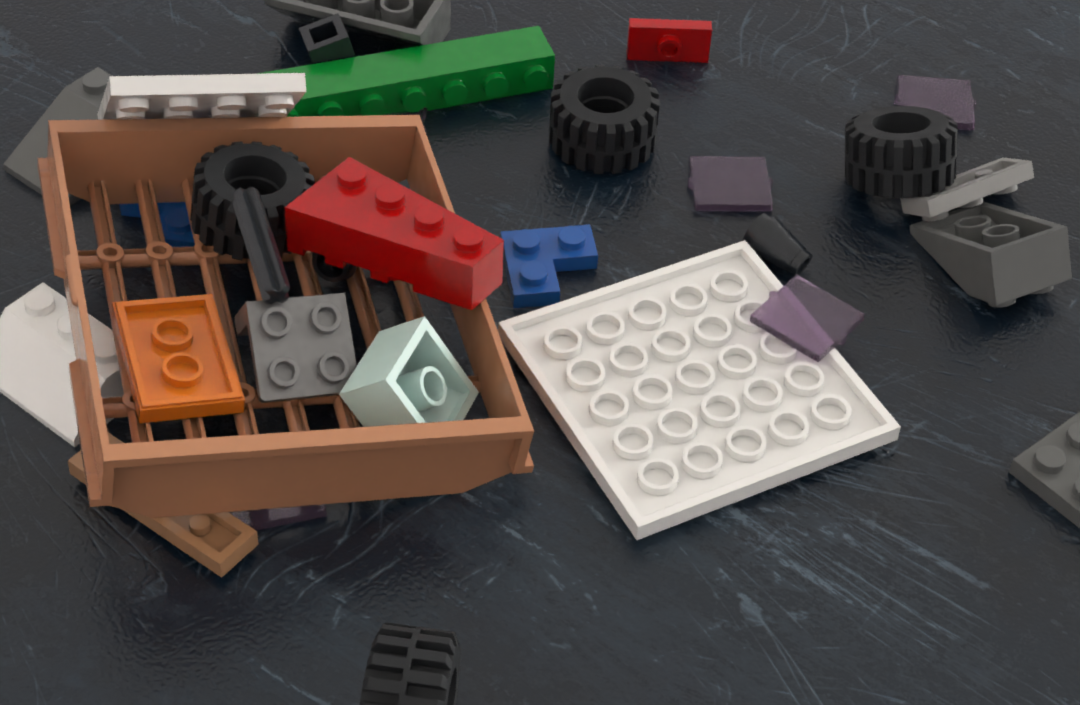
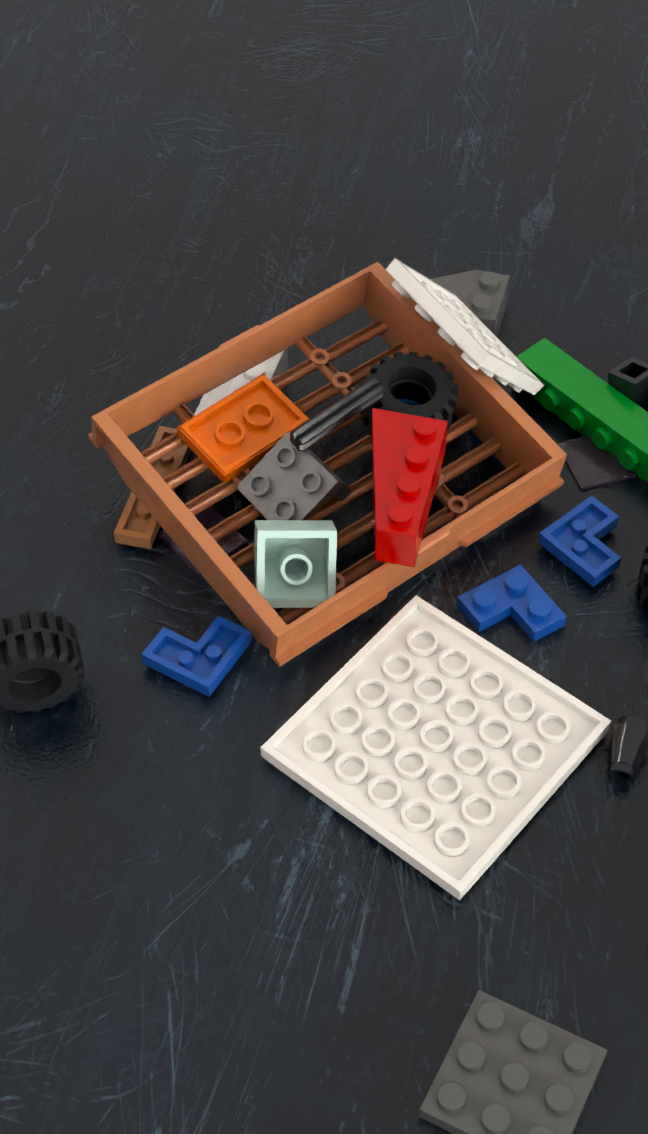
camera: 70 degrees right, 5 degrees up
(473, 547) = (200, 663): none -> blue plate
(496, 183) = (577, 543): none -> blue plate
(807, 318) = (542, 789): clear purple piece -> none

